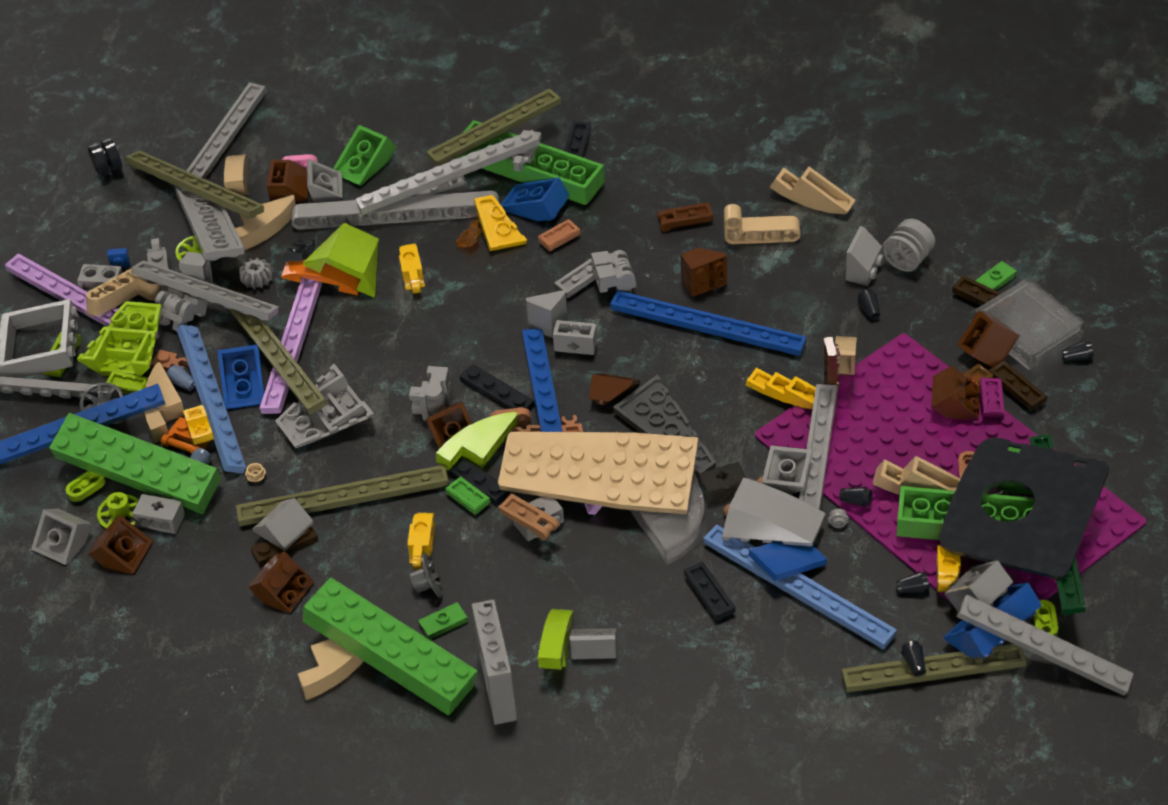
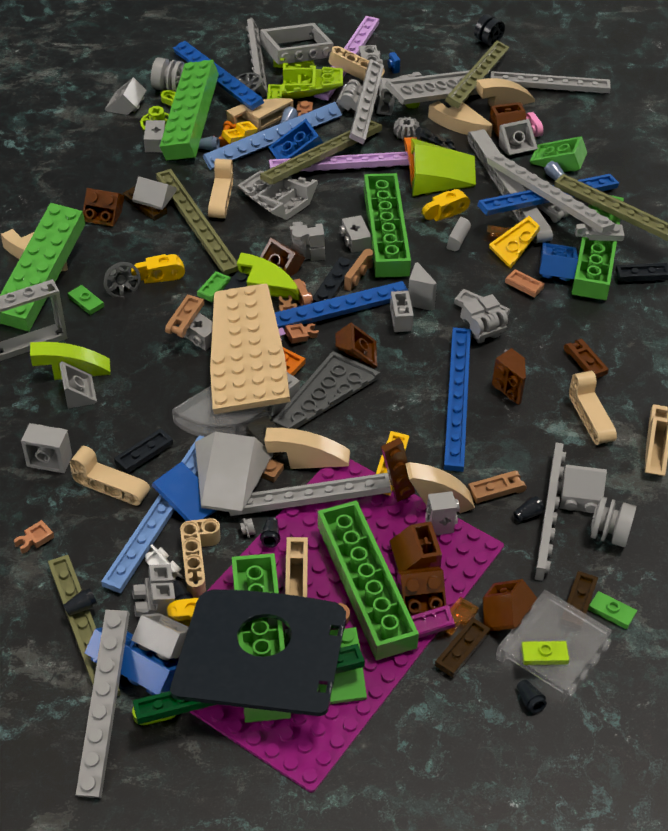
camera: 70 degrees right, 0 degrees up
(44, 478) = (166, 74): none -> light grey wheel
(120, 546) = (120, 125): reddish brown slope -> none
(255, 472) = (207, 173): tan plate -> none
(300, 463) = (221, 188): none -> tan beam
(388, 168) = (553, 170): none -> sand blue cone
(427, 322) = (386, 225): none -> bright green brick
(428, 352) = (355, 234): none -> light grey brick
(443, 193) = (529, 198): none -> blue plate
(462, 270) = (458, 234): none -> light grey brick
(489, 362) = (358, 269): none -> medium nougat plate
(692, 668) = (46, 448): none -> light grey brick
(734, 636) = (106, 479): none -> tan beam
(755, 447) = (306, 448): none -> tan slope
(787, 469) = (286, 472): light grey slope -> none
(806, 697) = (34, 535): none -> nougat plate
(834, 318) = (496, 486): none -> medium nougat plate
(866, 565) = (194, 536): none -> tan beam
(874, 358) = (442, 512): none -> light grey brick
(879, 589) = (159, 557): none -> white hinge
(885, 292) = (550, 516): none -> light grey plate
(910, 387) = (416, 547): none -> reddish brown slope
(914, 599) = (156, 591): none -> light grey hips
(933, 429) = (367, 581): none -> bright green brick
(1046, 324) = (544, 653): none -> lime plate

